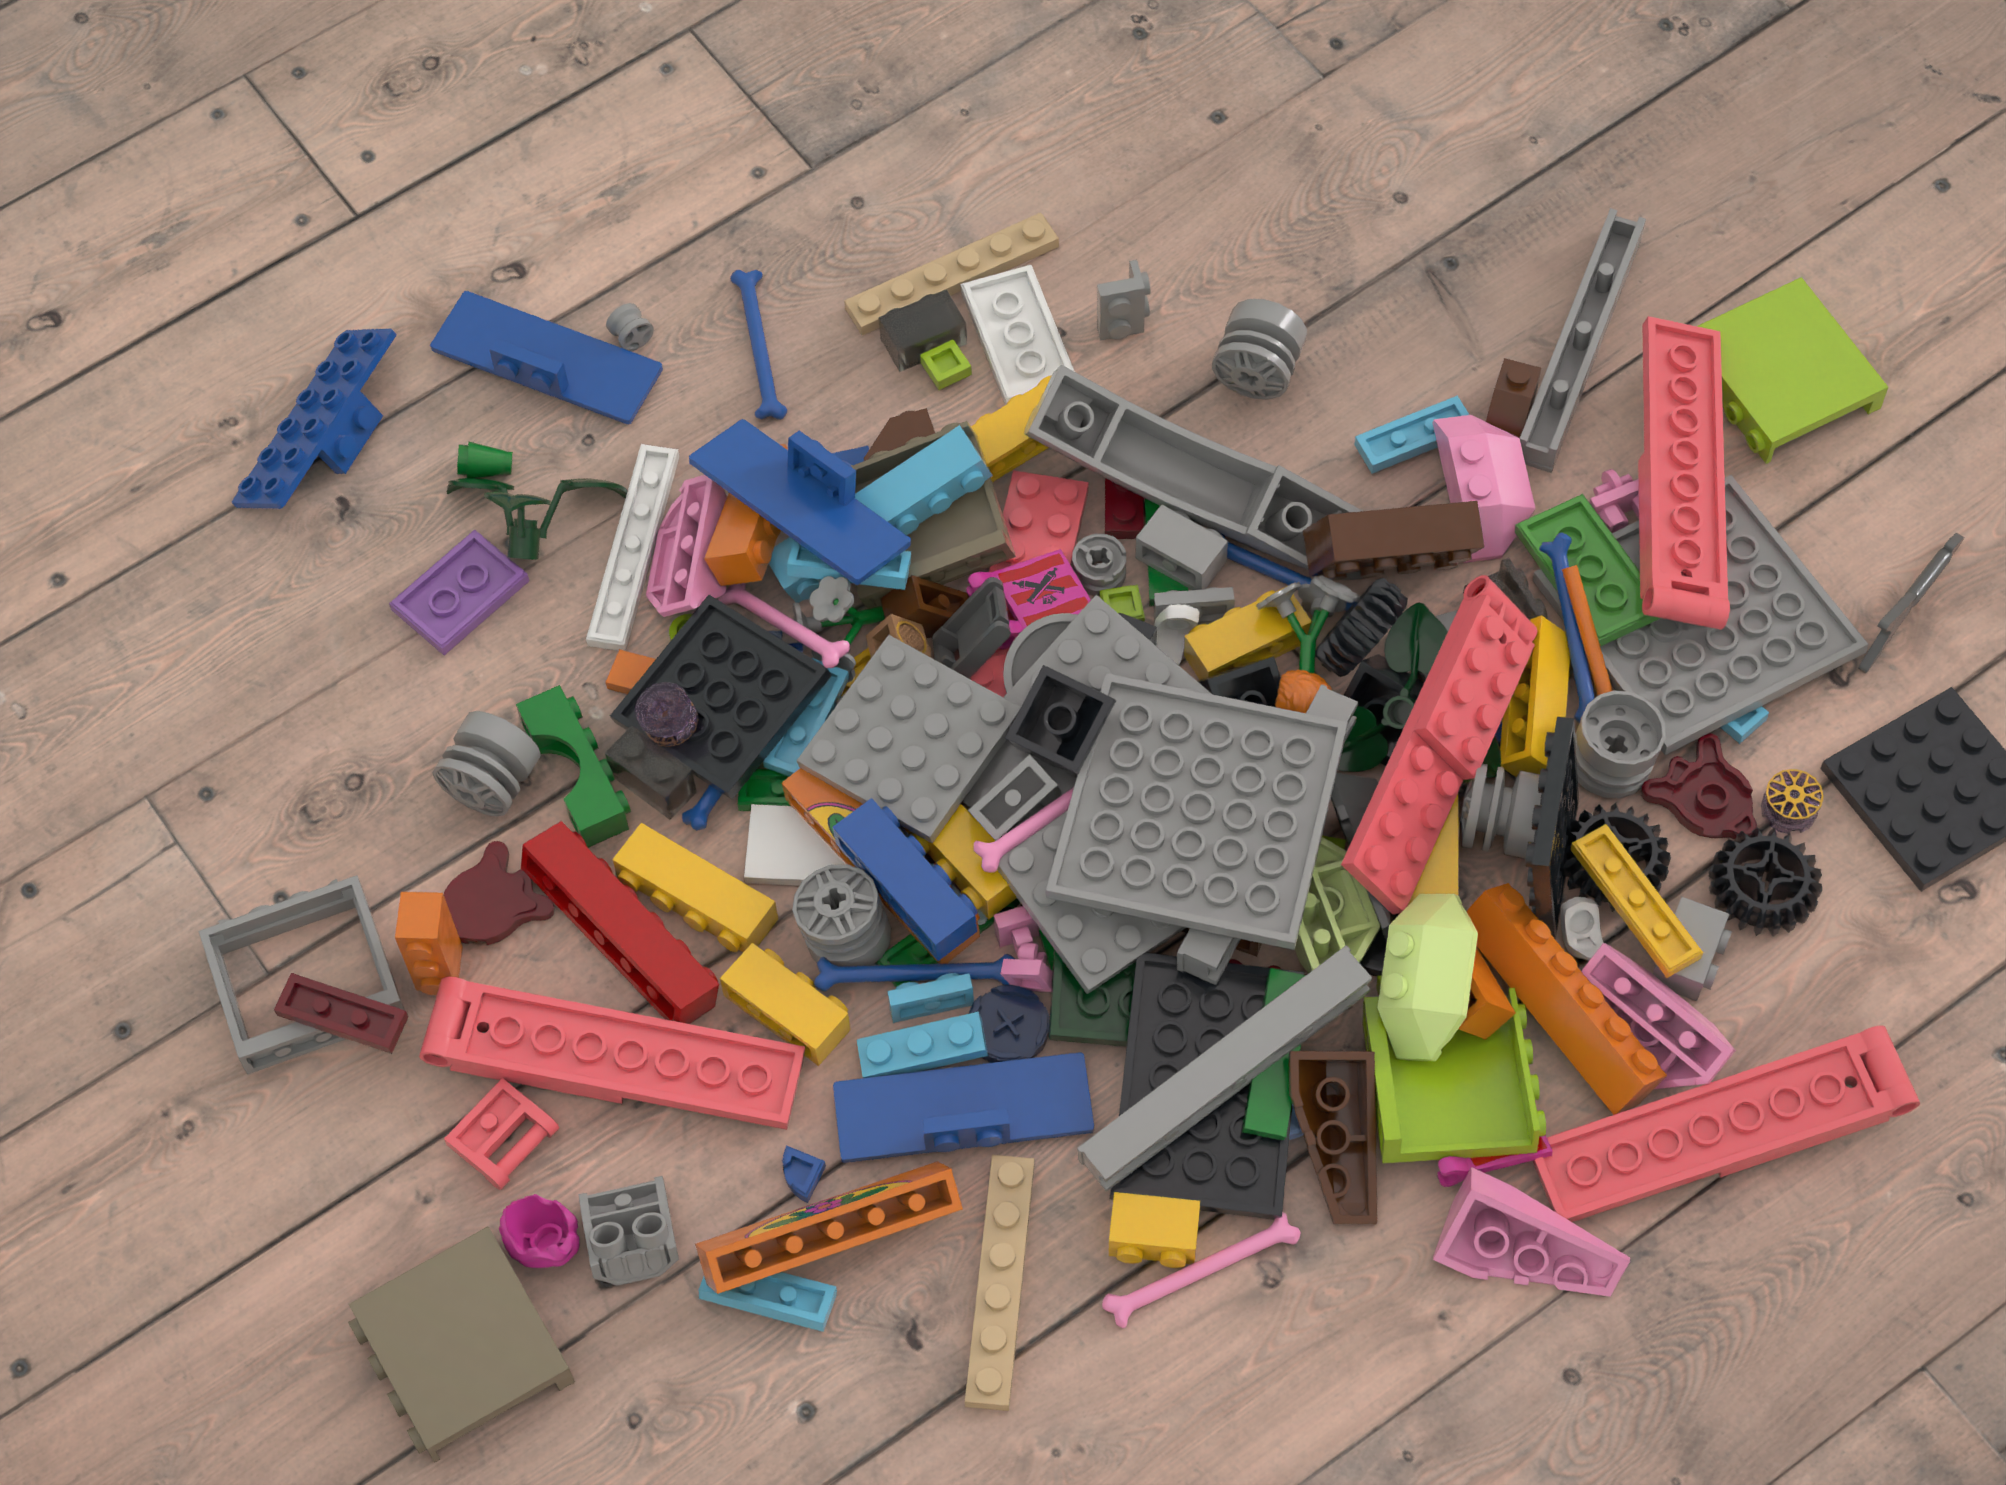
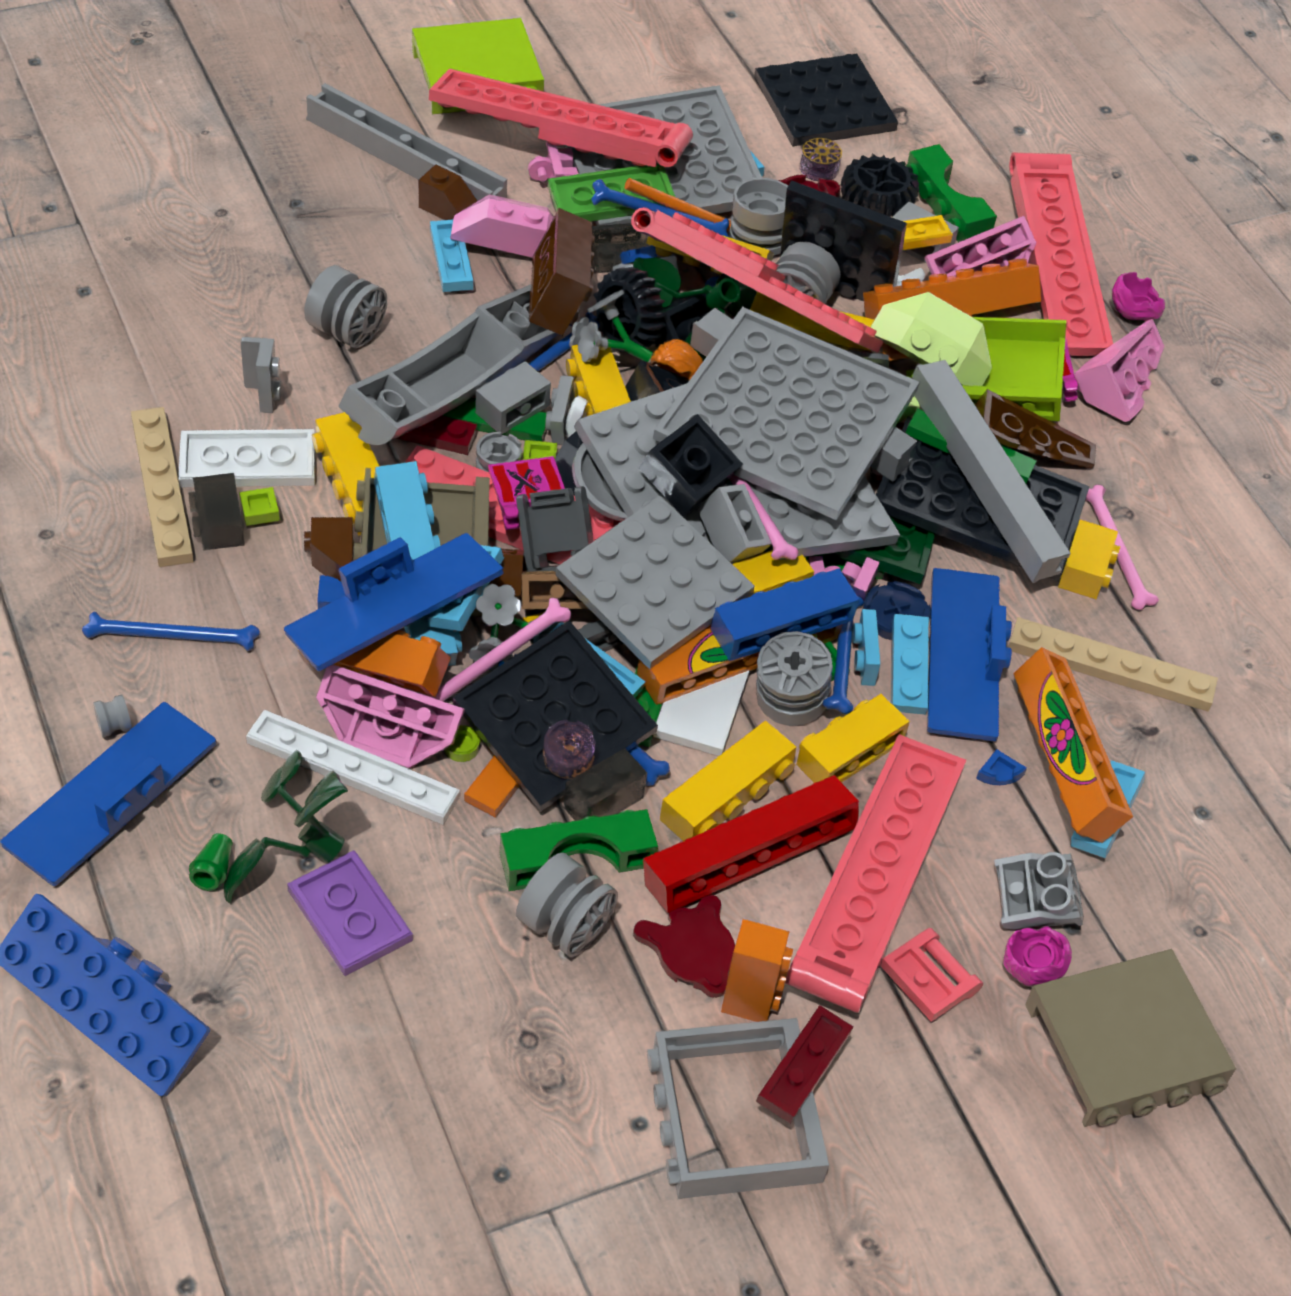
camera: 85 degrees left, 10 degrees down
(1675, 1242) = (1137, 298): none -> dark pink hair
(1826, 942) = (966, 212): none -> green arch
(1894, 618) = (698, 67): dark grey piece -> none

